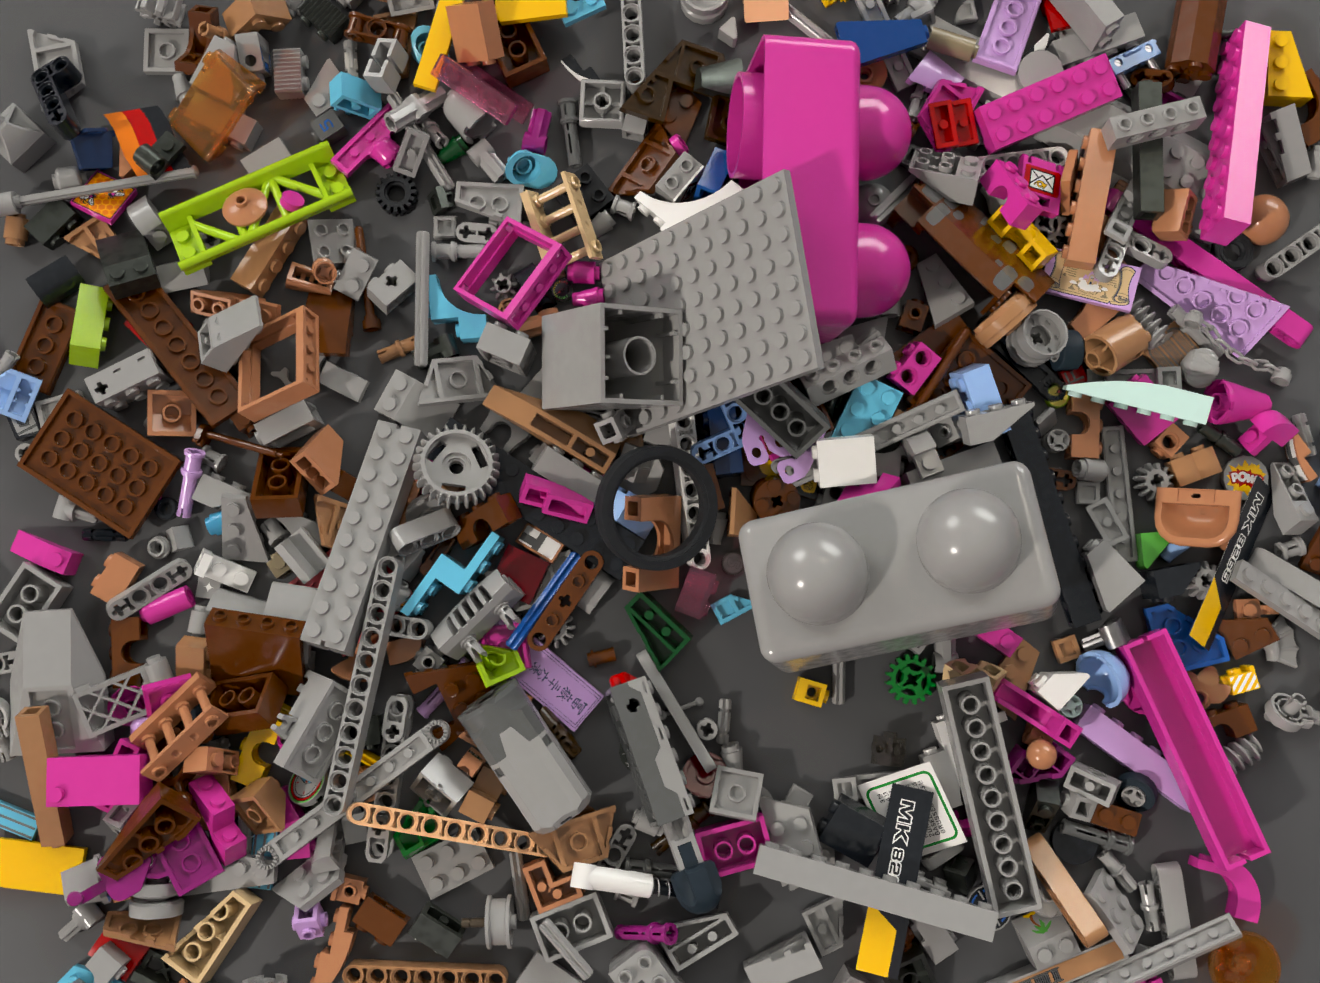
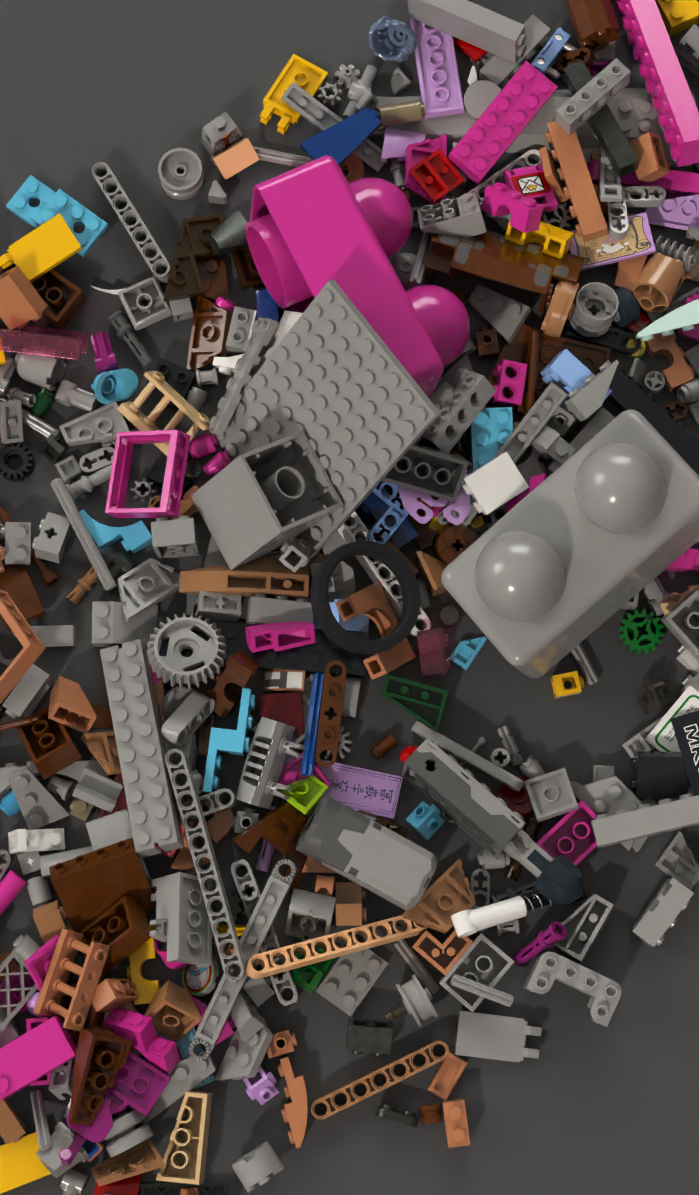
camera: 25 degrees left, 5 degrees down
(84, 841) = (40, 1120): none -> light grey axle
(380, 919) = (318, 1054): reddish brown brick -> none
(513, 438) = (218, 606): none -> light grey hinge
(603, 750) = (425, 819): none -> medium azure brick
(697, 190) = (262, 333): none -> light grey wing

